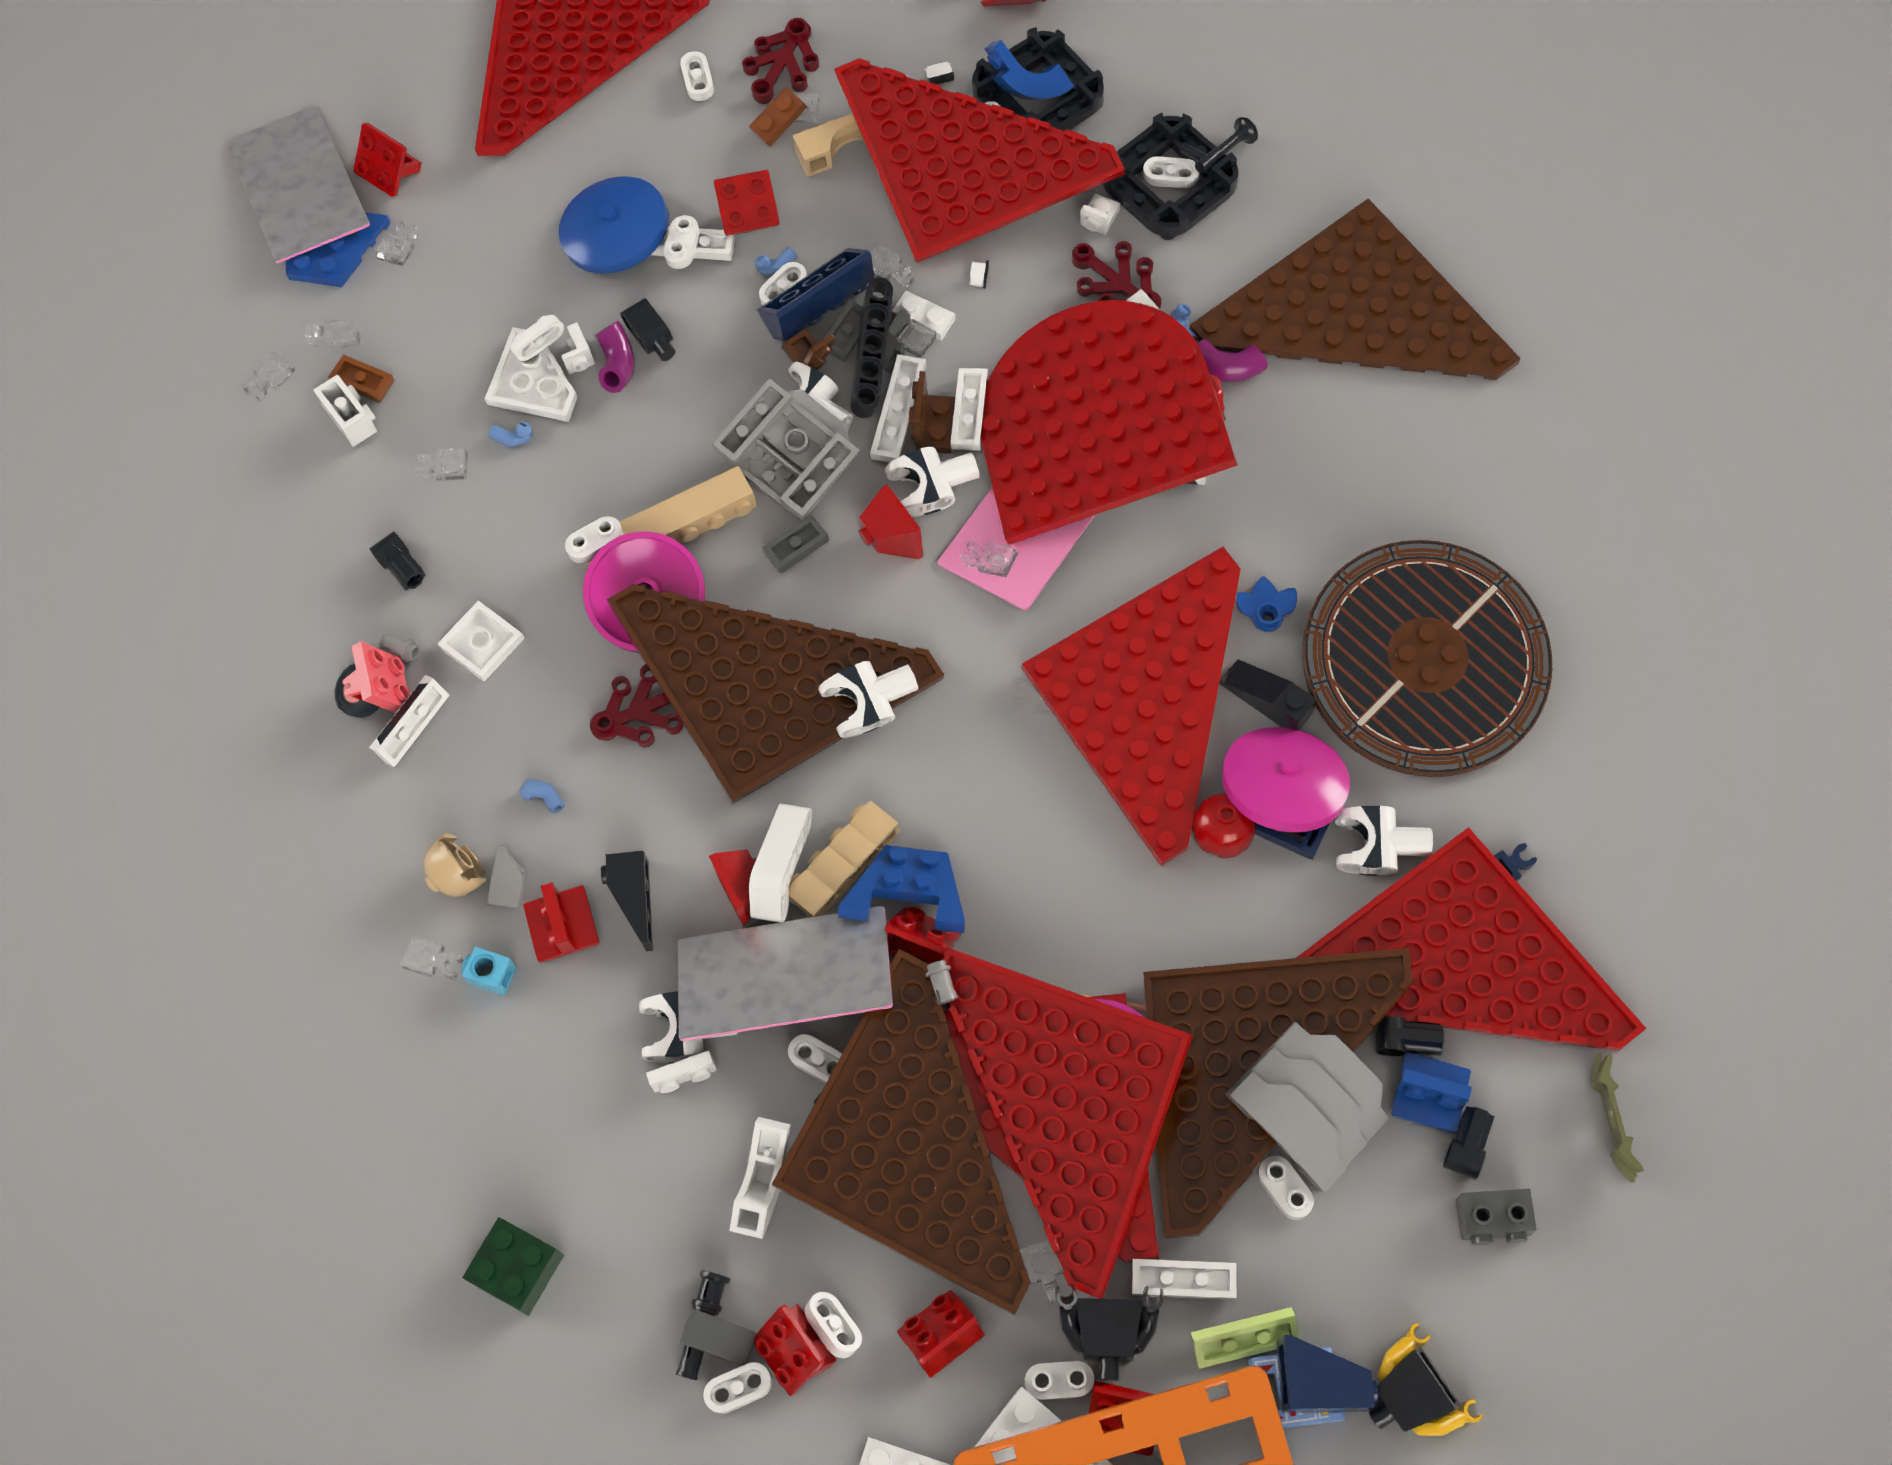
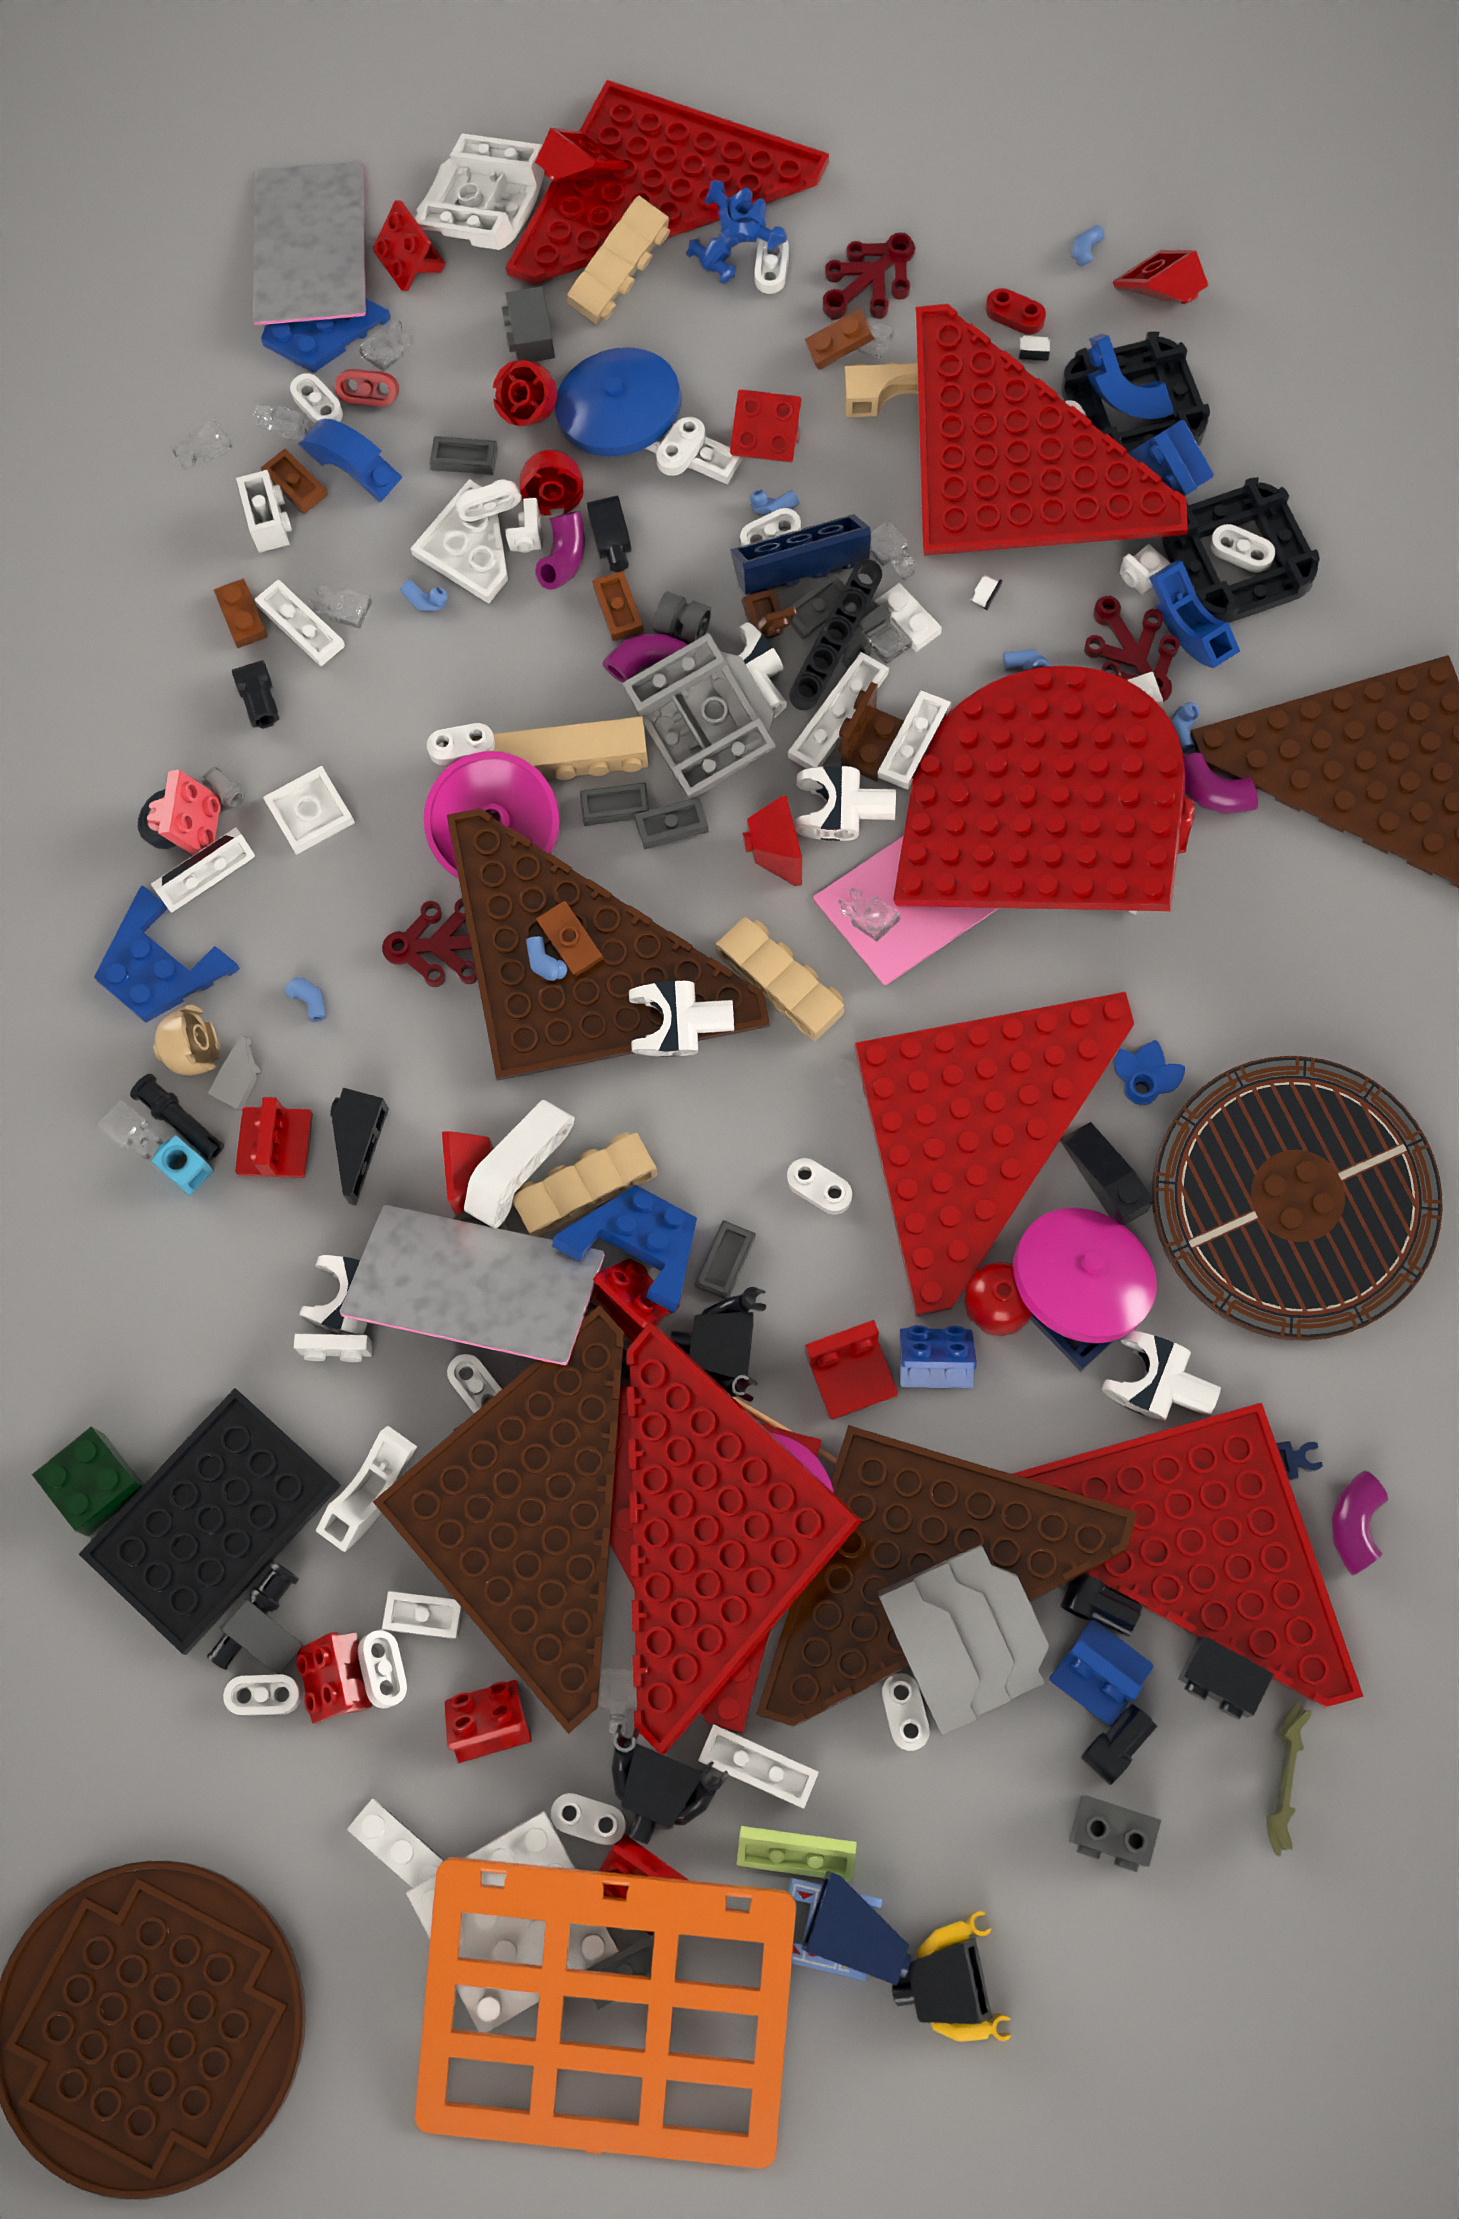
camera: 20 degrees right, 5 degrees up
(356, 501) = (240, 613): none -> dark orange plate
(357, 307) = (318, 402): none -> white plate
(394, 826) = (147, 975): none -> blue wing
(395, 283) = (368, 387): none -> red plate
(402, 337) = (349, 450): none -> blue arch
(412, 491) = (299, 622): none -> white plate
(432, 93) = (483, 191): none -> white slope
(455, 928) = (166, 1107): none -> black pin
(498, 310) = (463, 455): none -> dark grey tile
(500, 43) = (576, 156): none -> red slope
(514, 187) = (529, 324): none -> dark grey brick
(533, 242) = (524, 393): none -> red cylinder
(568, 113) = (618, 260): none -> tan brick
(585, 303) = (552, 480): none -> red cylinder
(632, 1260) = (209, 1521): none -> black plate
(659, 52) = (740, 223): none -> blue piece
(679, 386) = (617, 606): none -> dark orange plate
(714, 417) = (639, 654): none -> magenta cylinder
(734, 691) = (543, 964): none -> medium blue arm
(737, 378) = (681, 619): none -> dark grey wheel
(740, 545) = (613, 803): none -> dark grey tile
(750, 663) = (569, 938): none -> dark orange plate
(849, 1266) = (422, 1615): none -> white plate
(912, 50) = (1014, 311): none -> red plate
(941, 981) = (628, 1357): light grey pin -> none
(946, 638) = (784, 982): none -> tan brick
(985, 879) = (725, 1260): none -> dark grey tile
(1011, 939) = (724, 1340): none -> black torso
(1032, 316) = (1025, 659): none -> medium blue arm
(1037, 792) = (818, 1185): none -> white plate
(1090, 118) = (1175, 458): none -> blue bracket
(1126, 927) = (851, 1370): none -> red bracket
(1148, 239) = (1187, 619): none -> blue arch
(1193, 891) = (937, 1357): none -> blue bracket
(1244, 131) = (1342, 530): black piece -> none
(1531, 1056) = (1225, 1678): none -> black brick
(1578, 892) = (1352, 1522): none -> magenta cylinder

